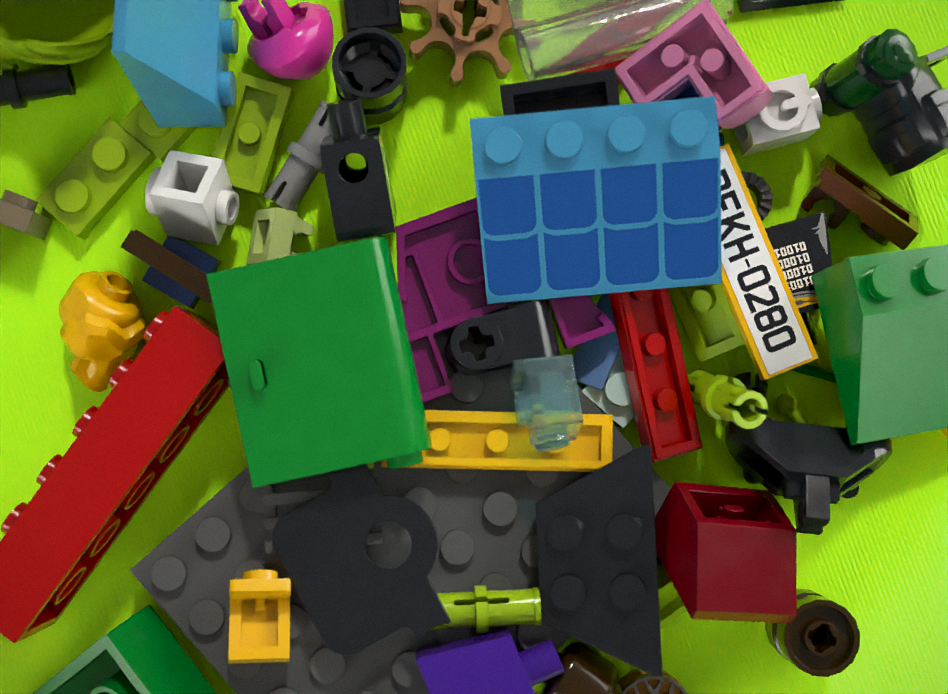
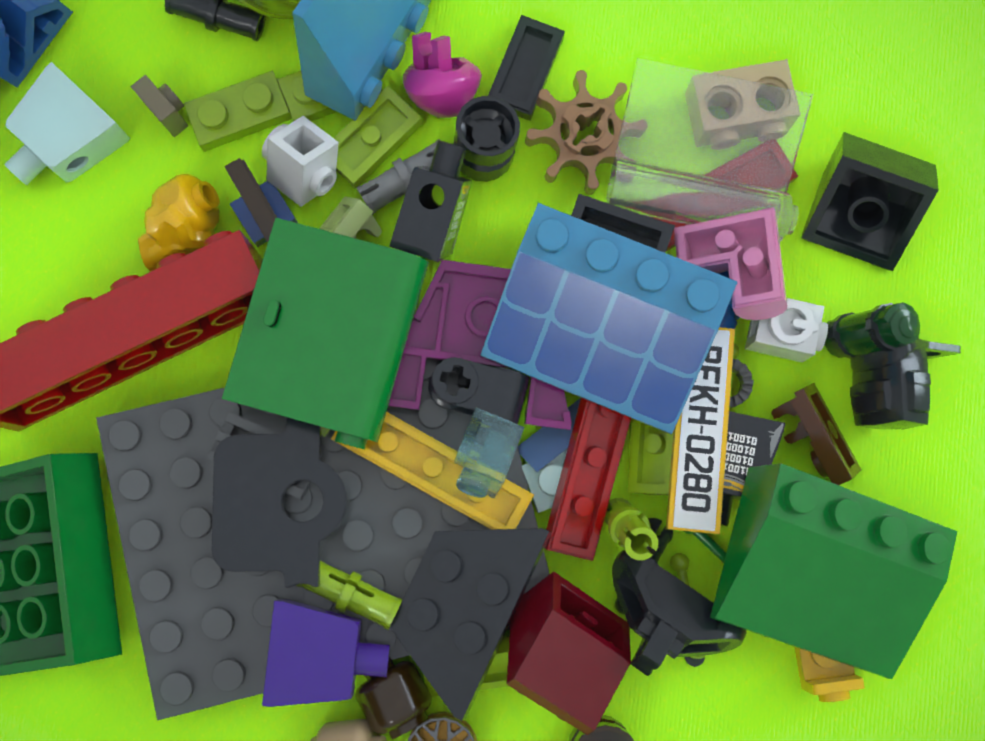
camera: 30 degrees right, 5 degrees down
(259, 618) = (172, 504): yellow bracket -> none

